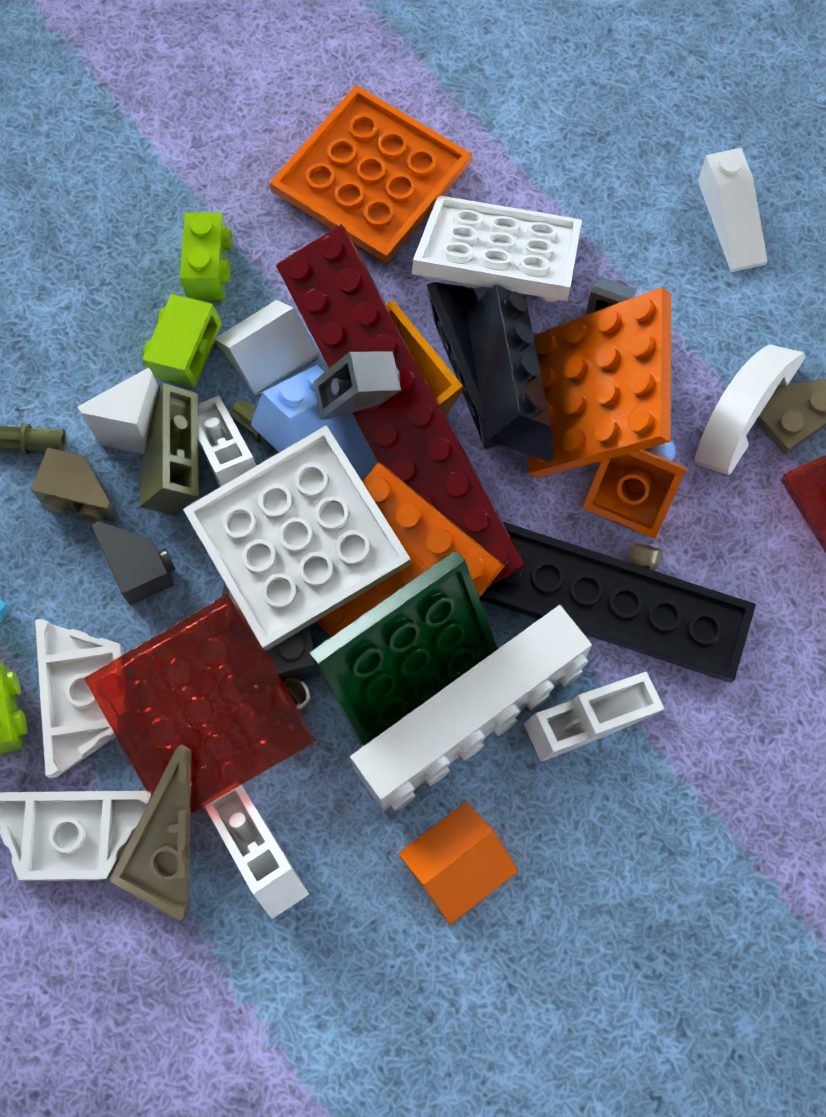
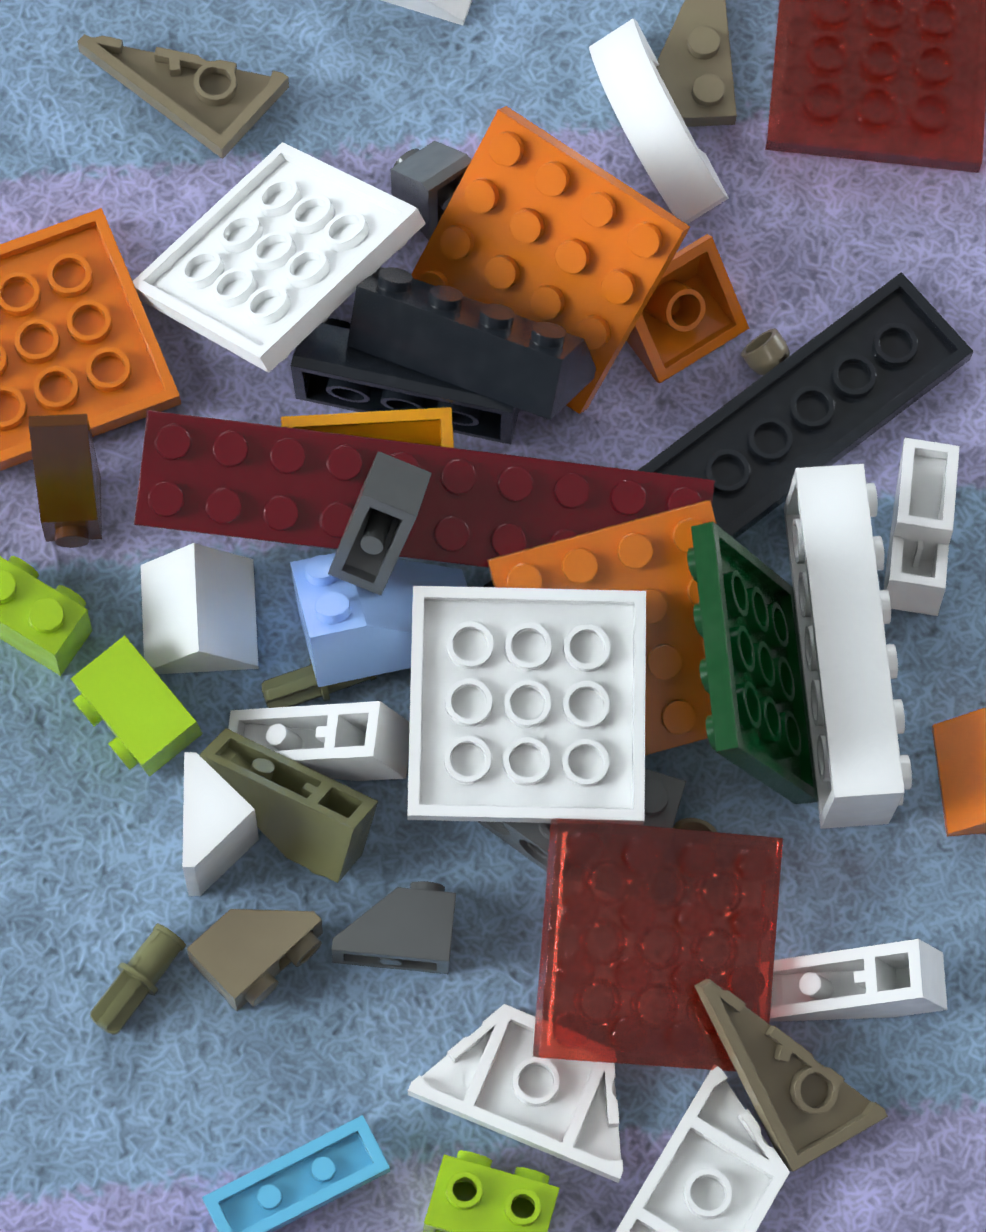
camera: 65 degrees left, 0 degrees up
(287, 217) = (66, 479): none -> reddish brown slope
(579, 166) = (198, 95): none -> dark tan wing

